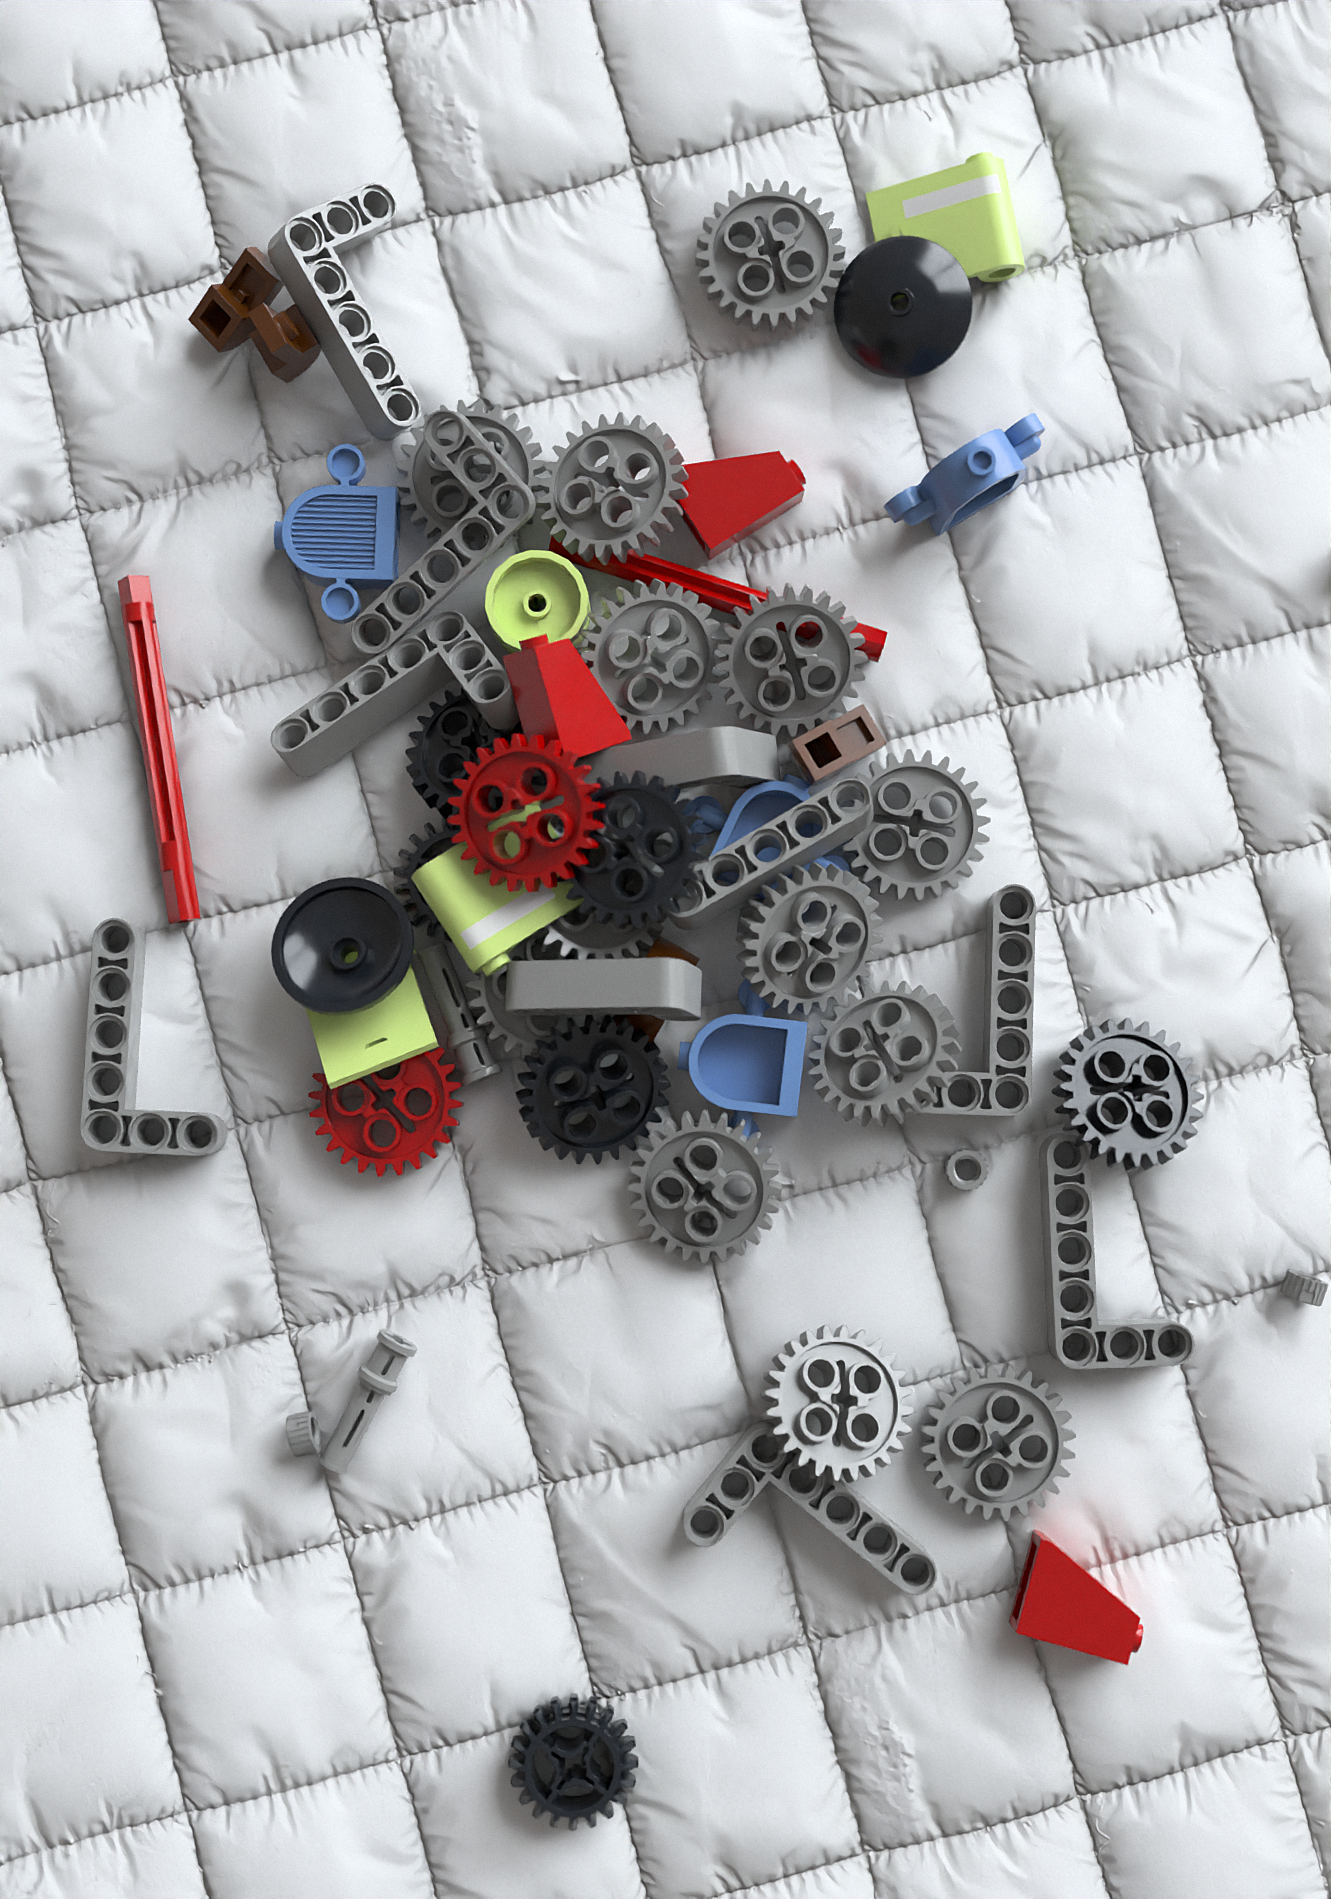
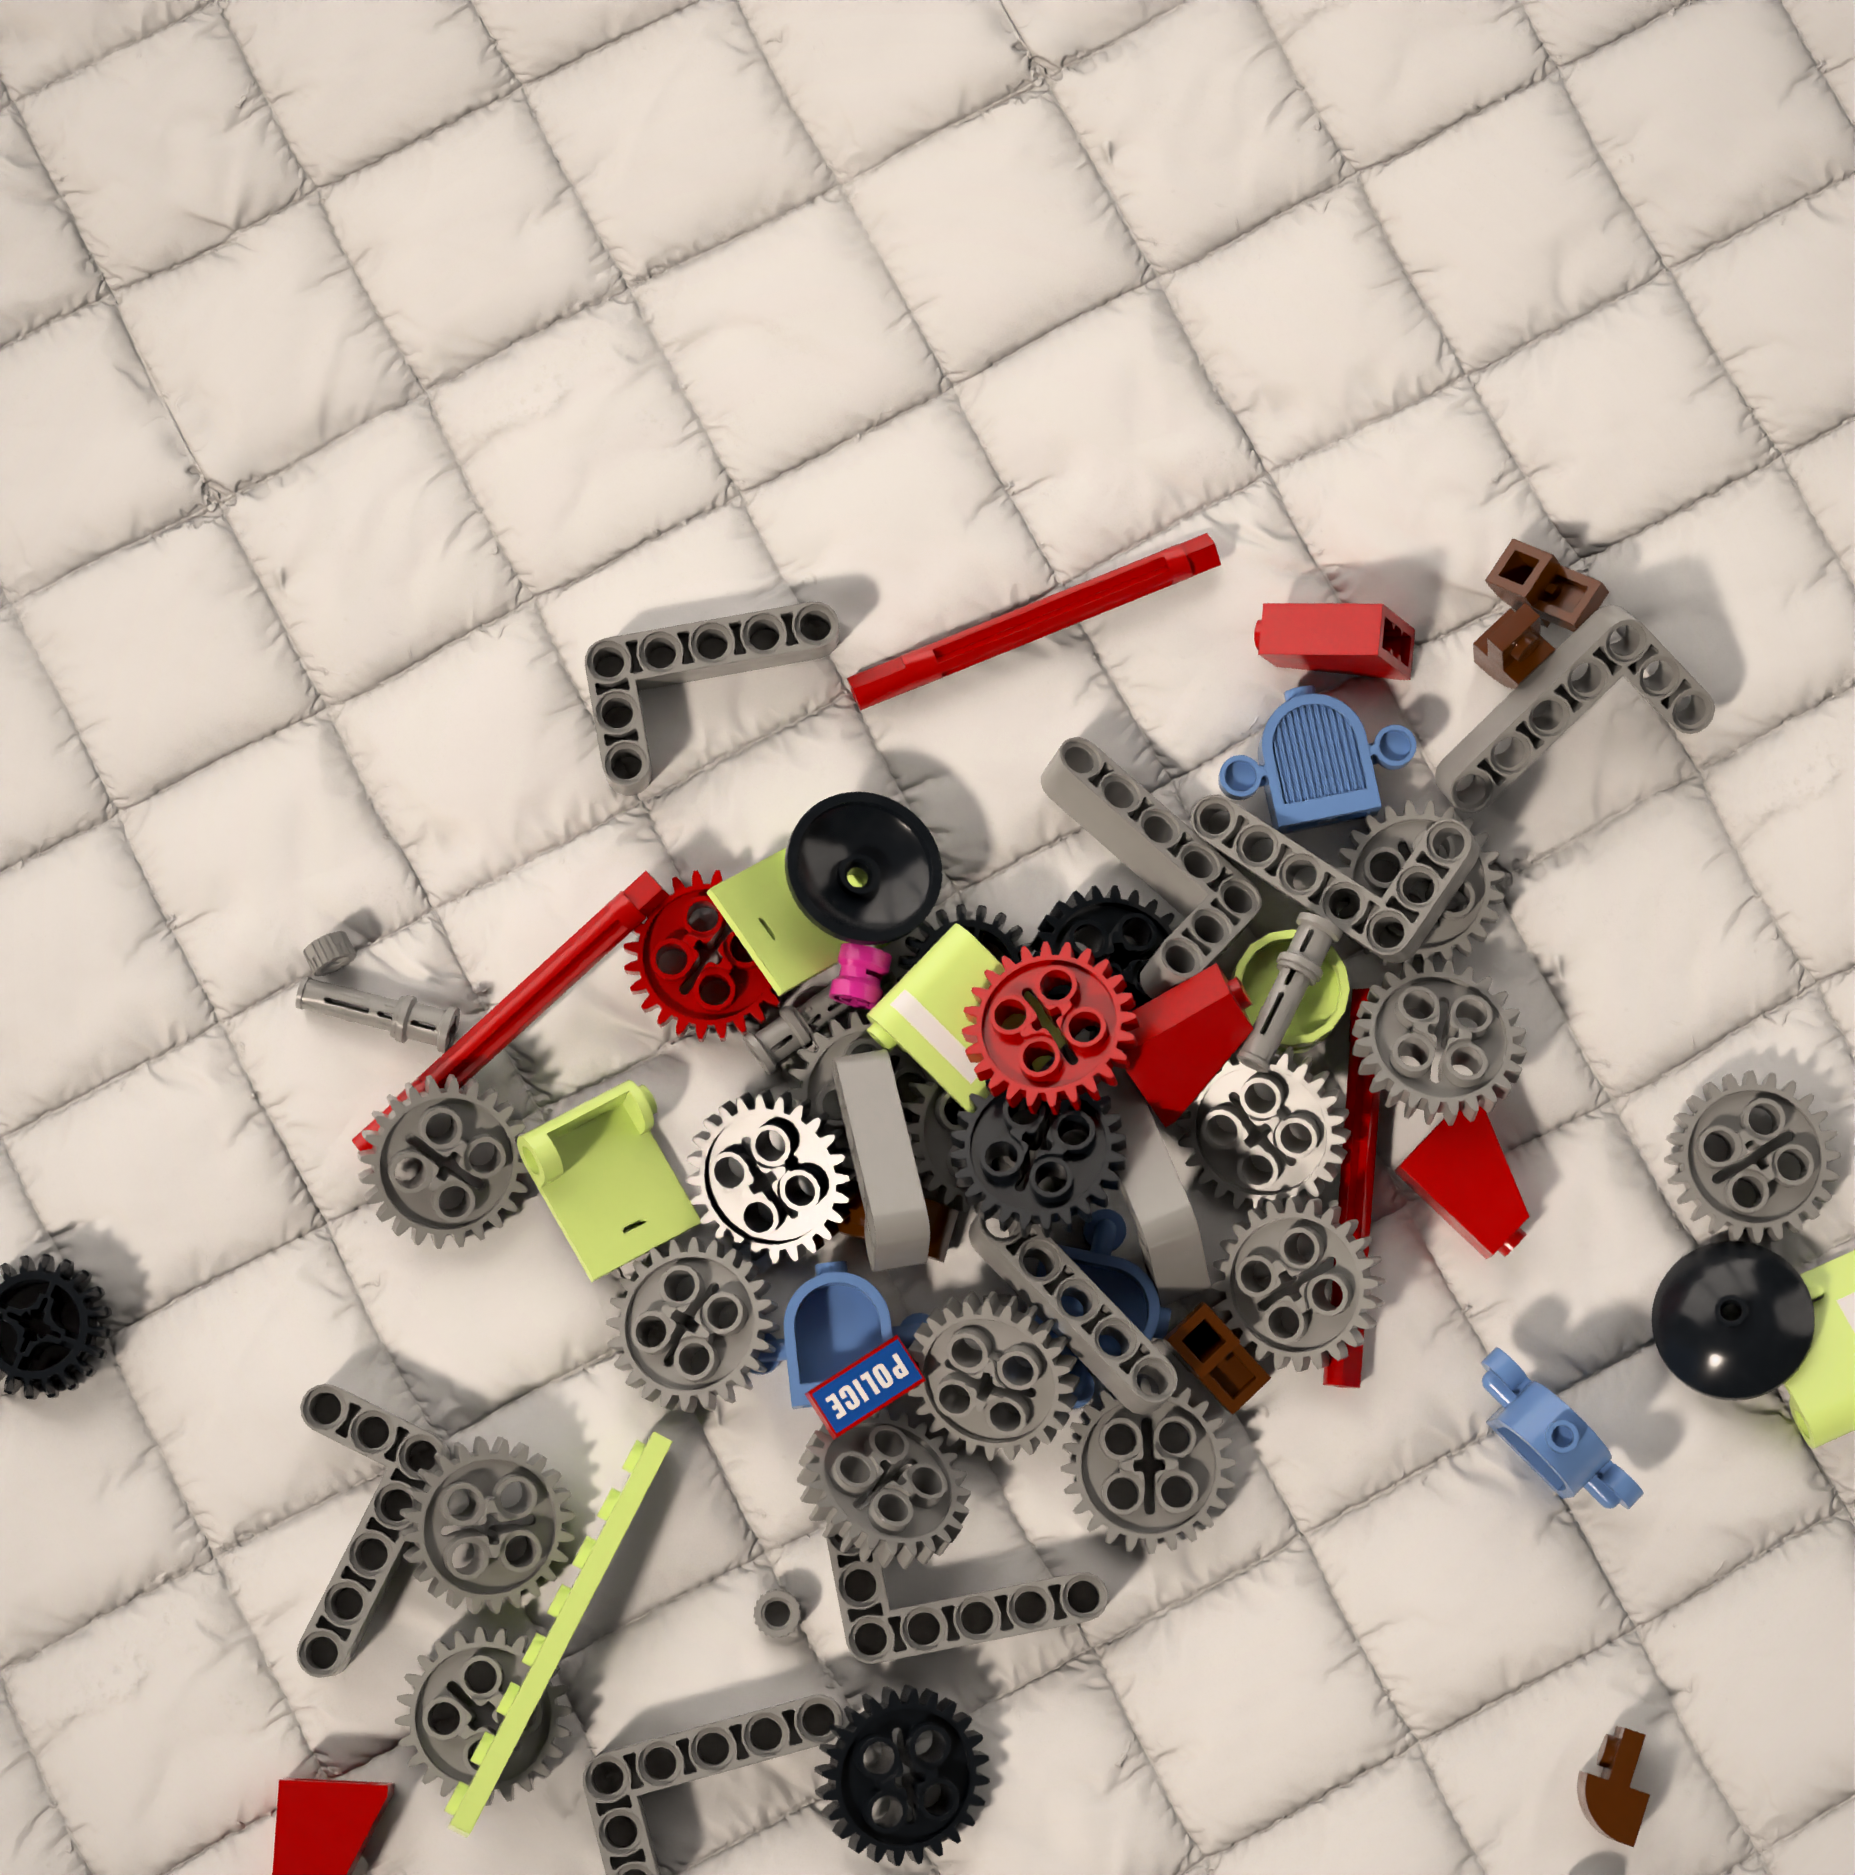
camera: 80 degrees right, 5 degrees down
(238, 492) = (1336, 639): none -> slope
(398, 1285) = (539, 989): none -> red piece
(436, 971) = (860, 975): none -> dark pink wheel
(523, 584) = (1298, 970): none -> light grey pin
(540, 1404) = (417, 1200): none -> light grey gear
(556, 1233) = (606, 1174): none -> yellowish green door
(796, 1049) = (865, 1387): none -> tile
(960, 1376) = (545, 1652): none -> yellowish green plate
(1272, 508) = (1608, 1800): none -> reddish brown brick

